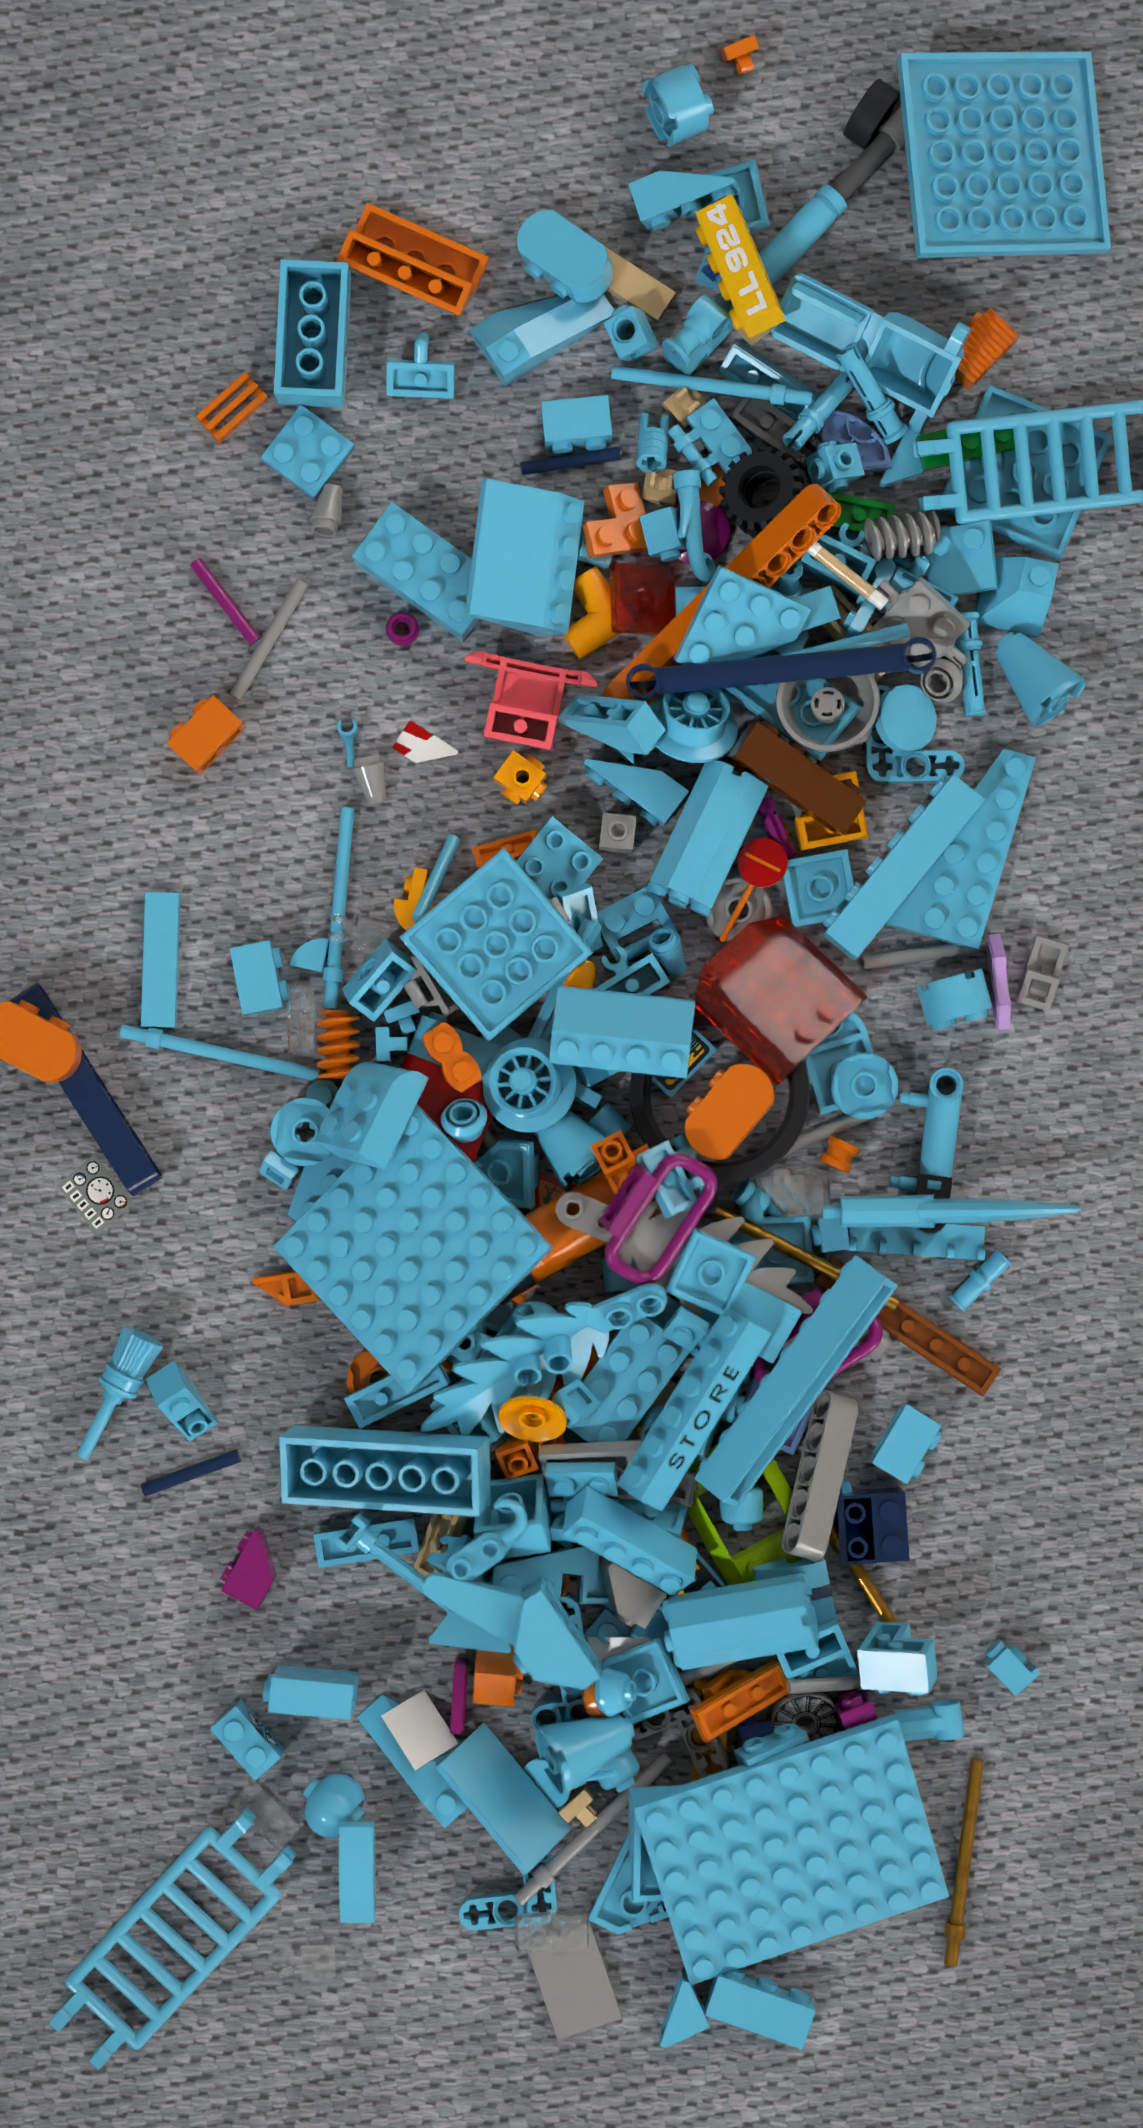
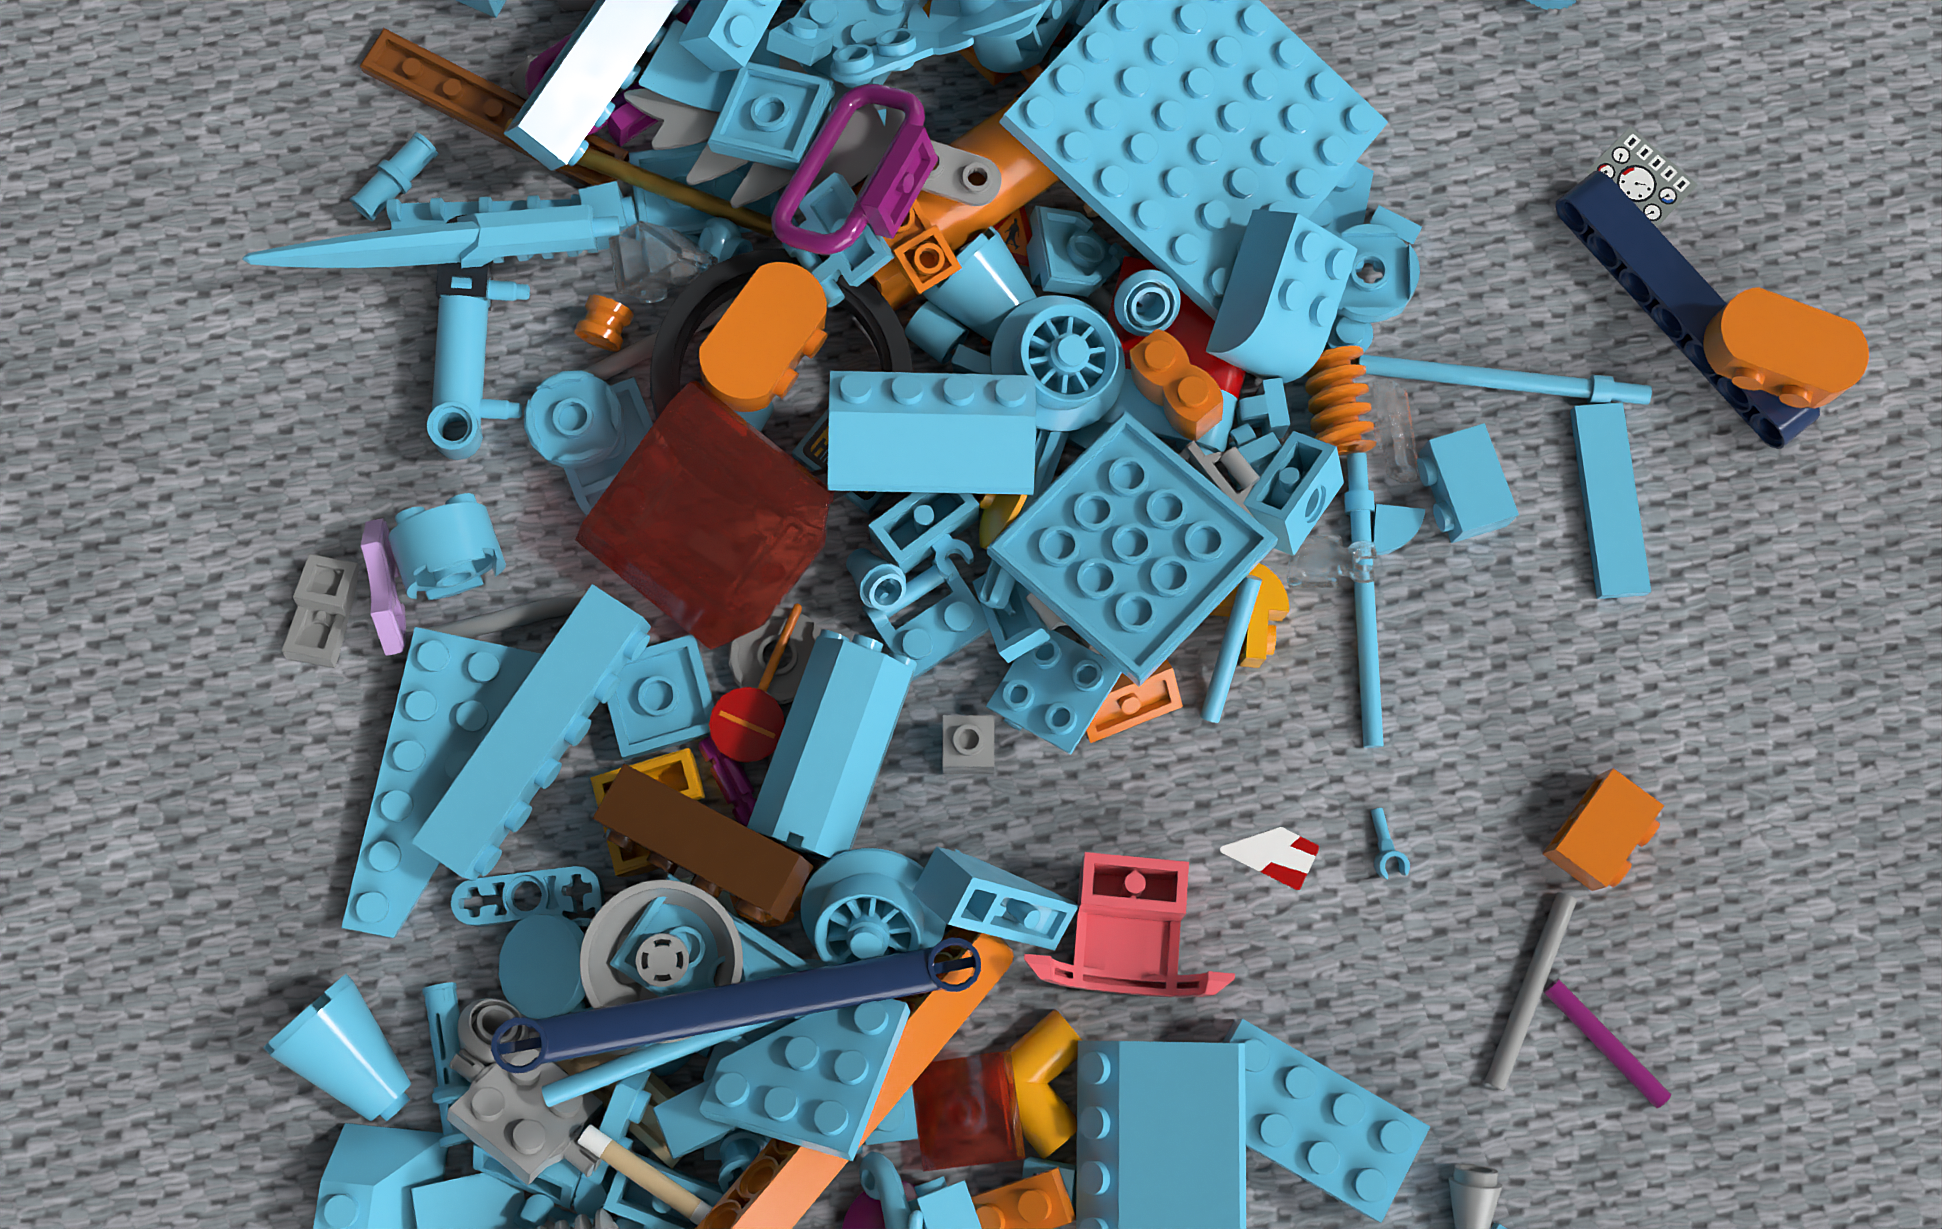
camera: 170 degrees right, 10 degrees down
(286, 1288) = (1368, 79): orange tile -> none
(371, 778) = (1346, 794): light grey cone -> none
(402, 618) = (1346, 1023): magenta plate -> none
(518, 766) = (1140, 806): light orange brick -> none
(645, 788) = (930, 816): medium azure slope -> none

